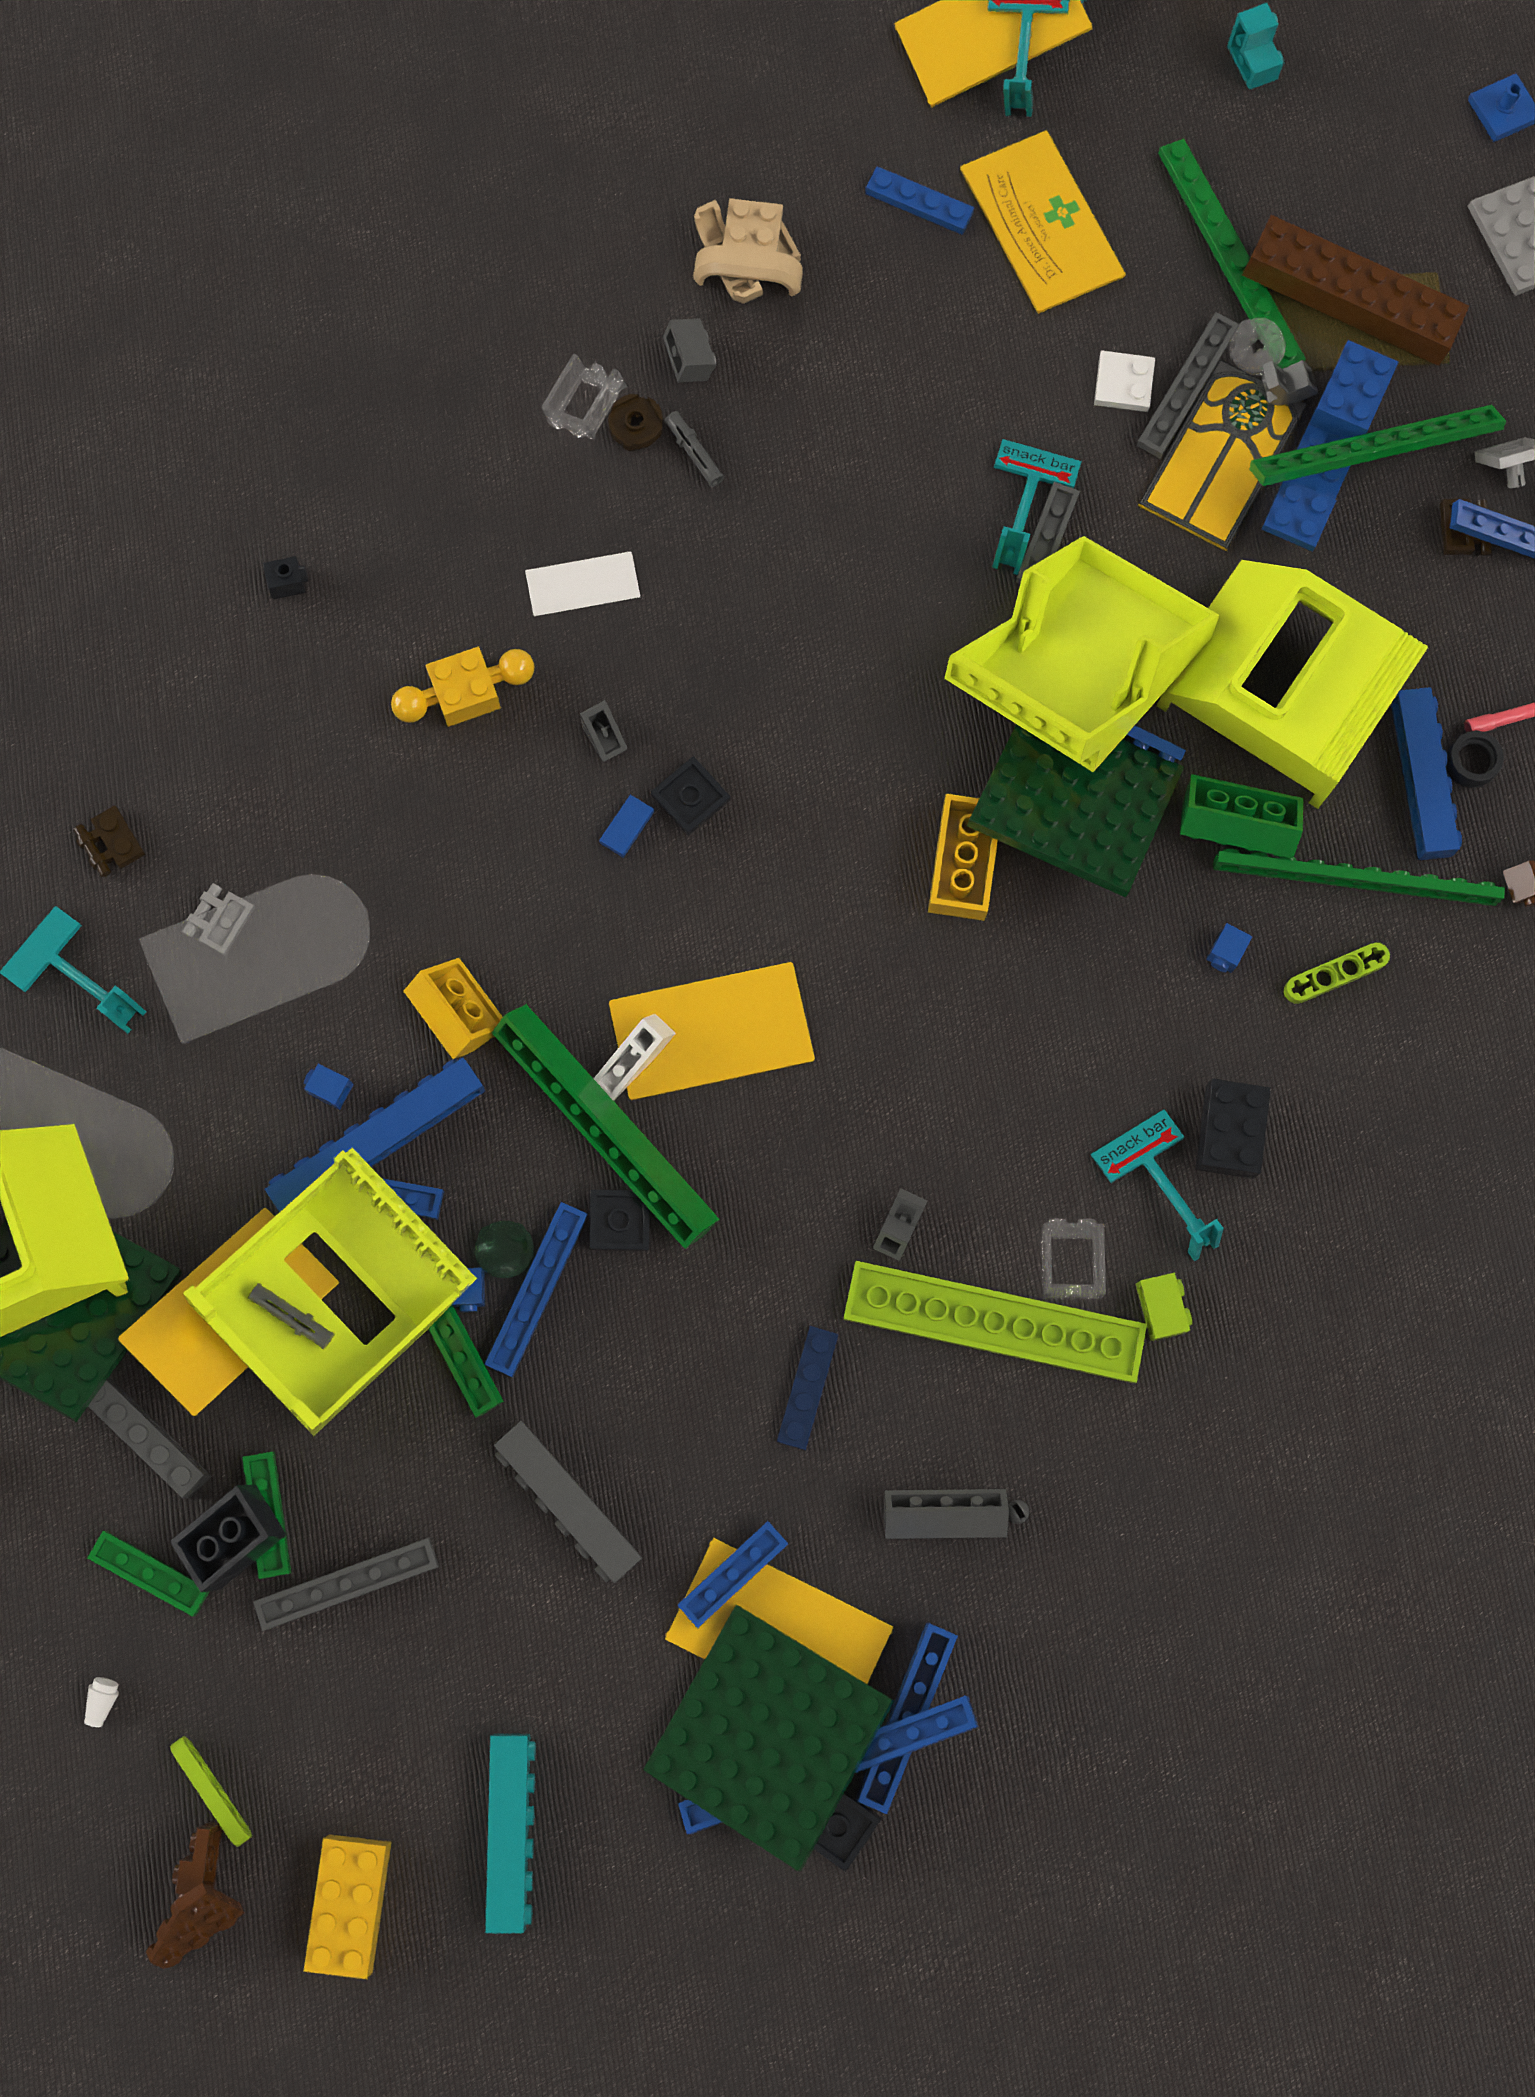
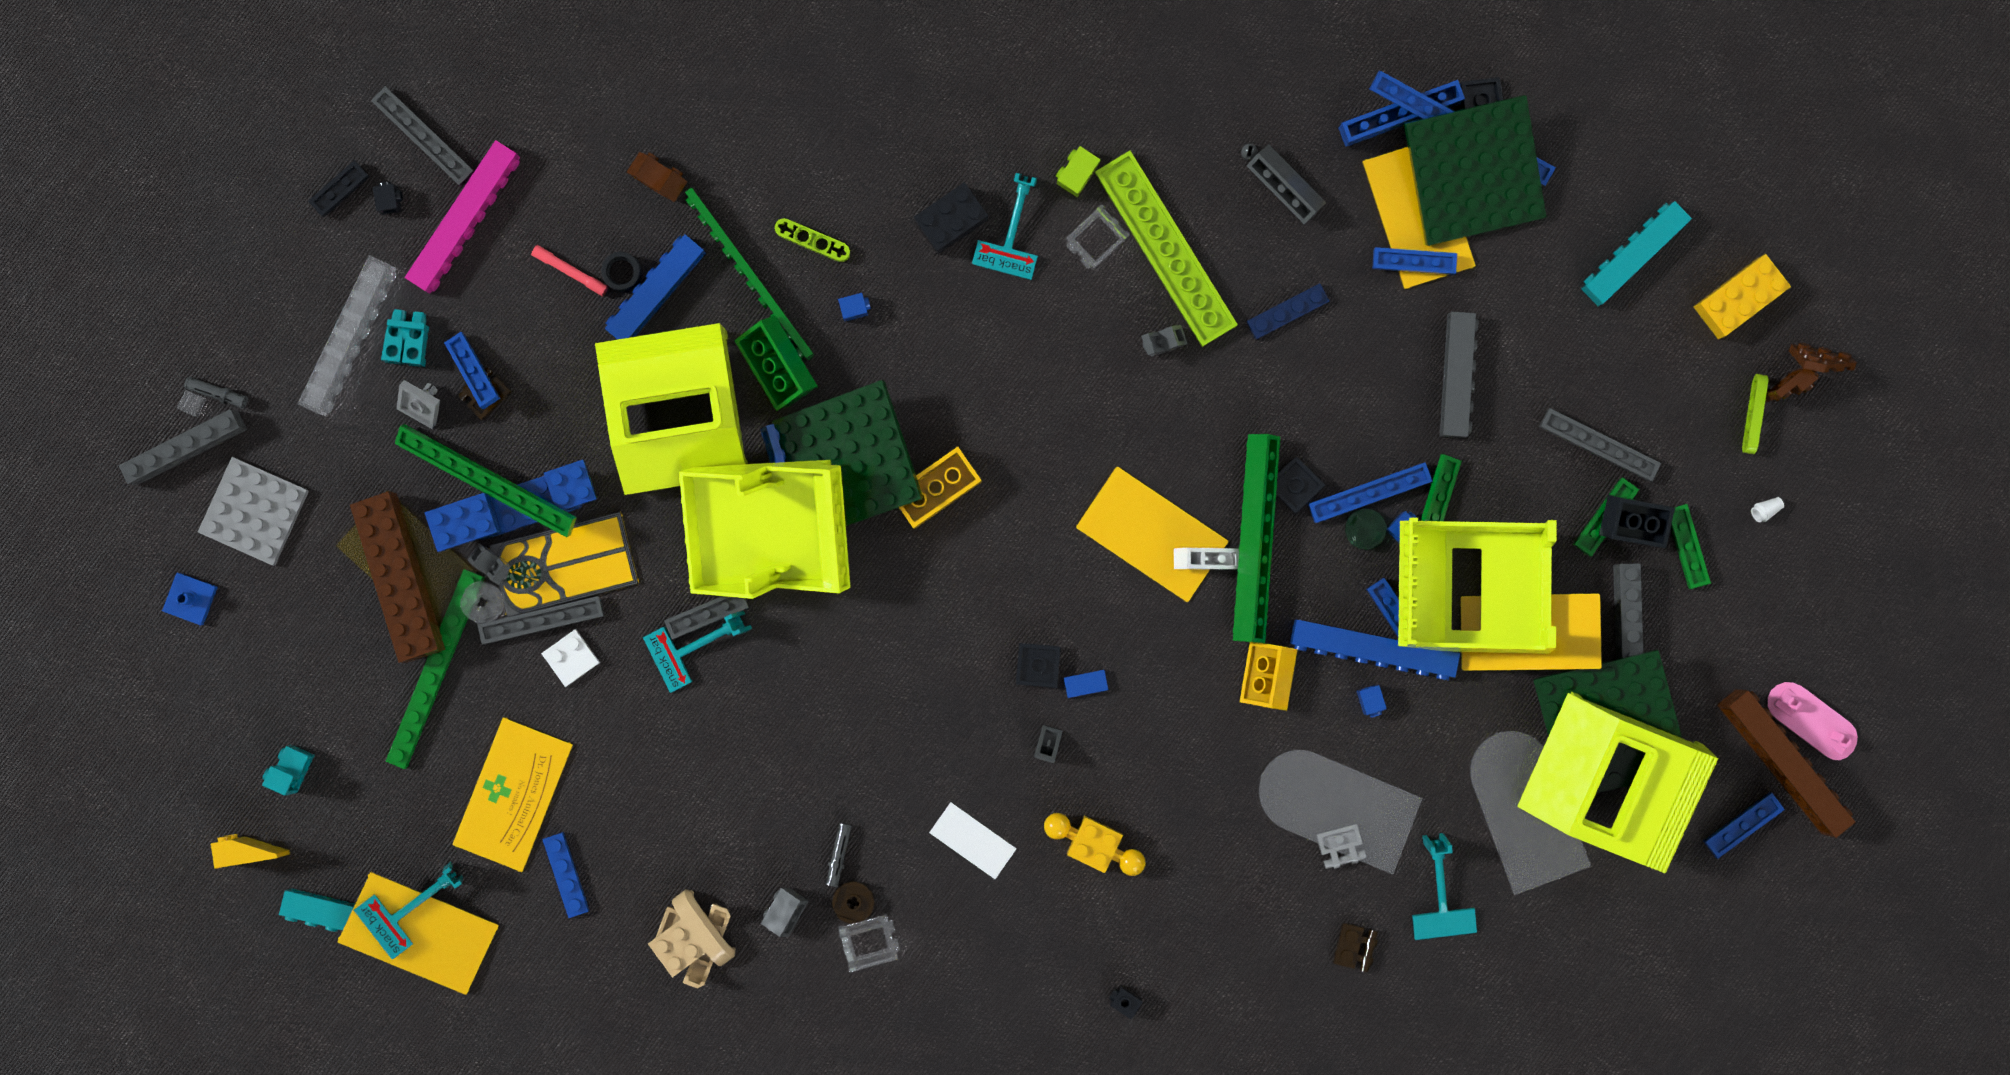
camera: 130 degrees left, 10 degrees up
(261, 1295) = (1504, 591): dark grey pin -> none

